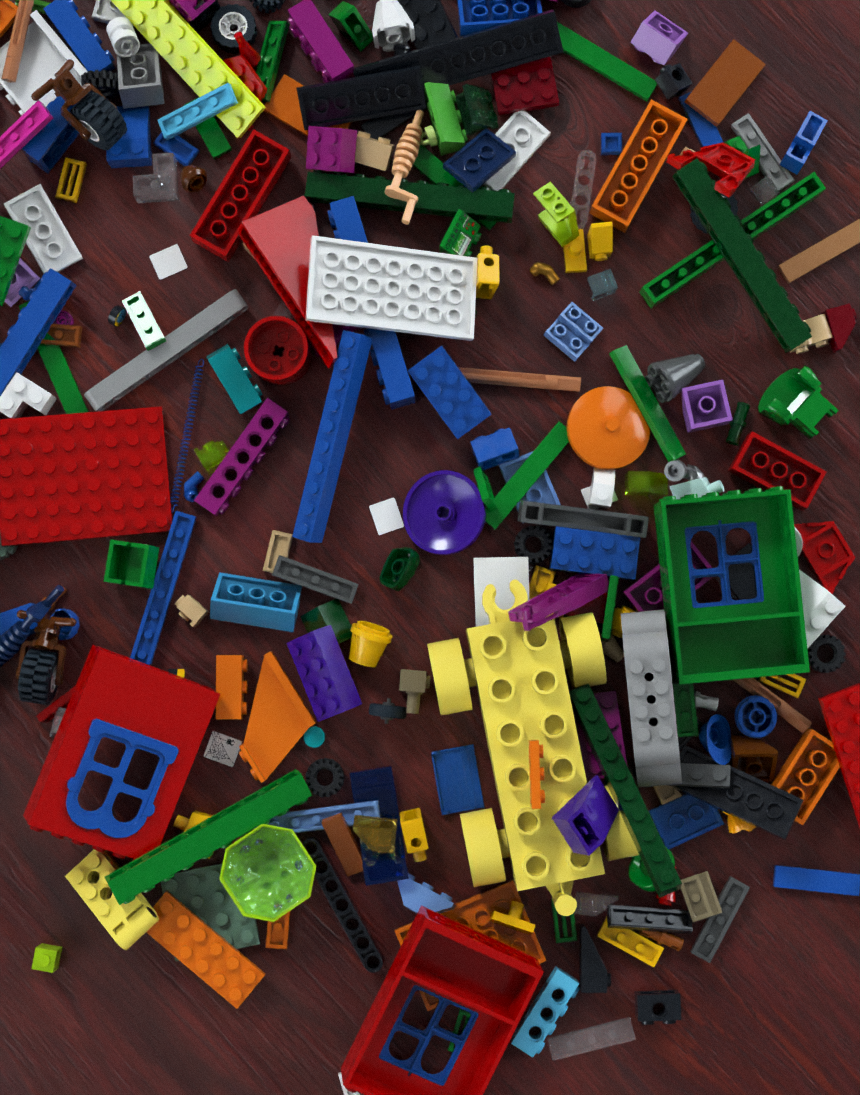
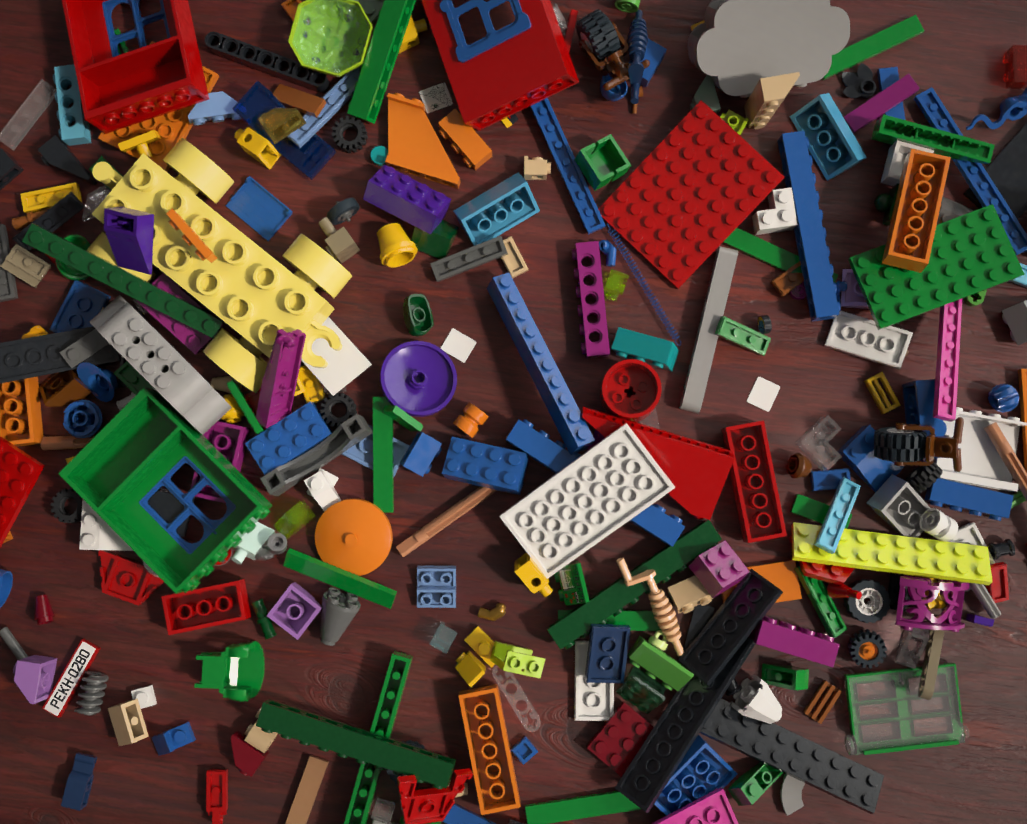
camera: 145 degrees right, 0 degrees up
(429, 442) = (470, 420): none -> orange wheel

